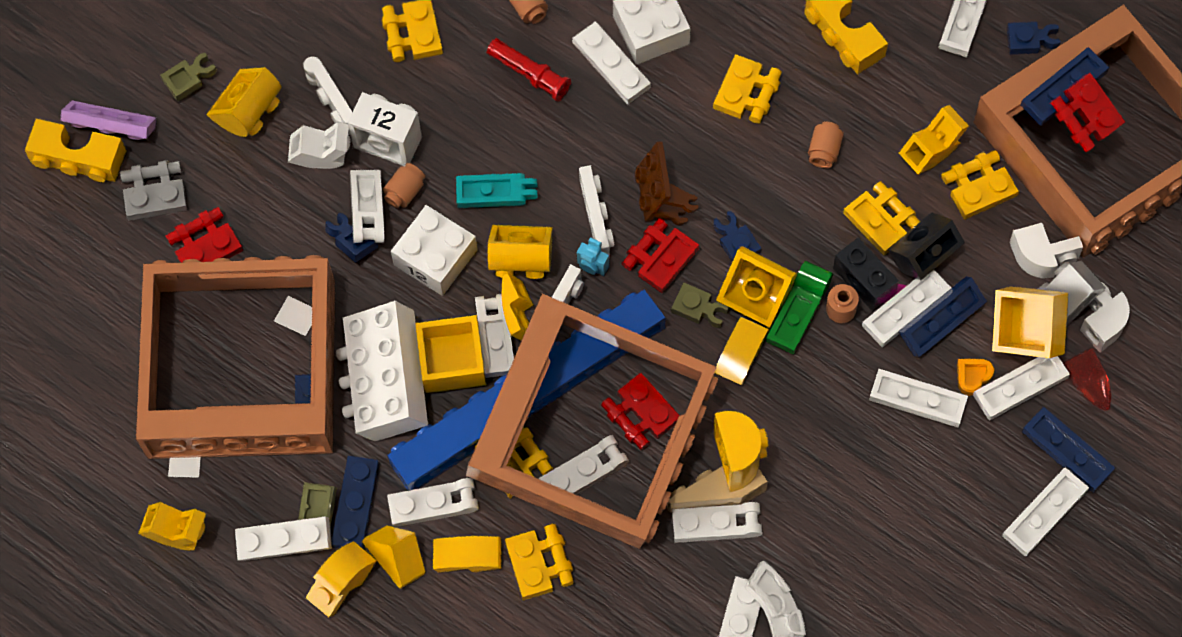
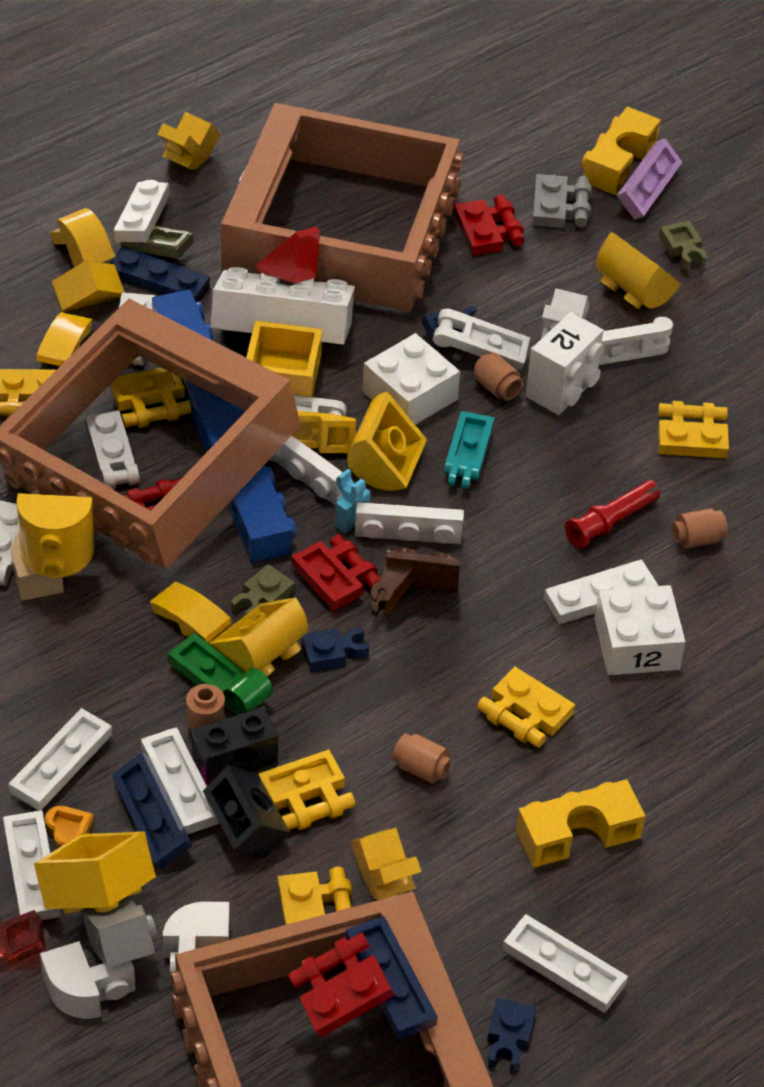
camera: 100 degrees right, 20 degrees down
(346, 366) = (295, 258): none -> red slope

